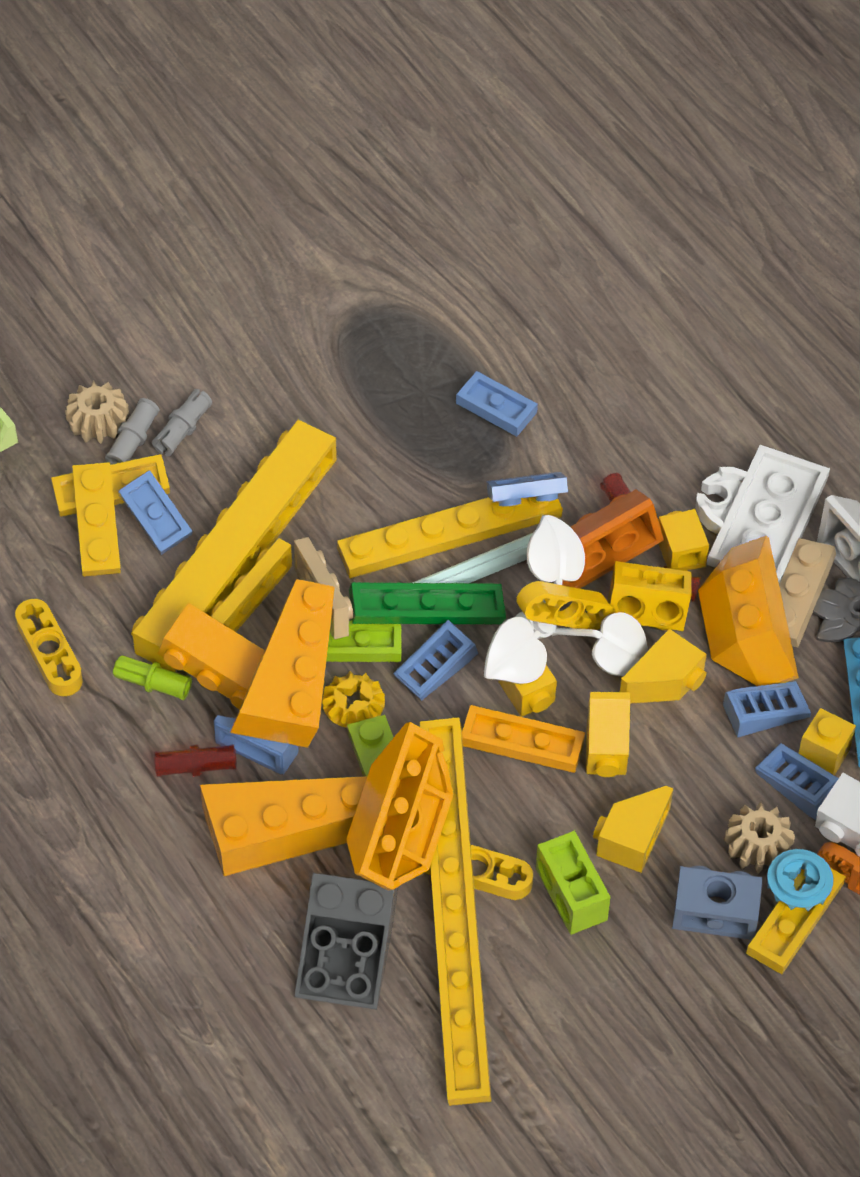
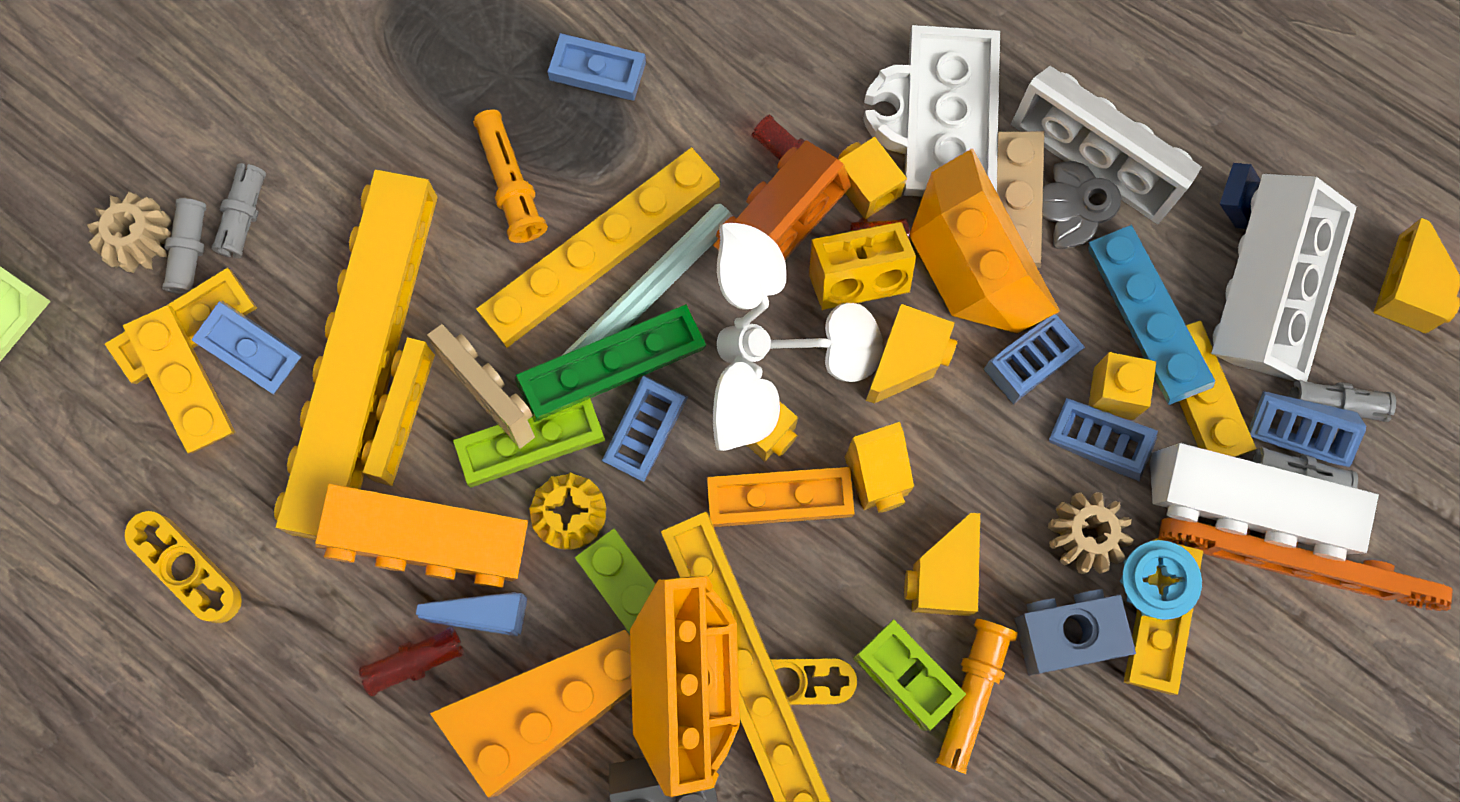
camera: 20 degrees left, 20 degrees up
(152, 677) = (313, 566): lime axle -> none
(289, 680) = (487, 532): light orange wedge -> none
(397, 471) = (513, 193): none -> light orange pin
(511, 490) = (682, 168): plate -> none
(574, 616) = (776, 323): yellow beam -> none
(633, 907) = (982, 671): none -> light orange pin

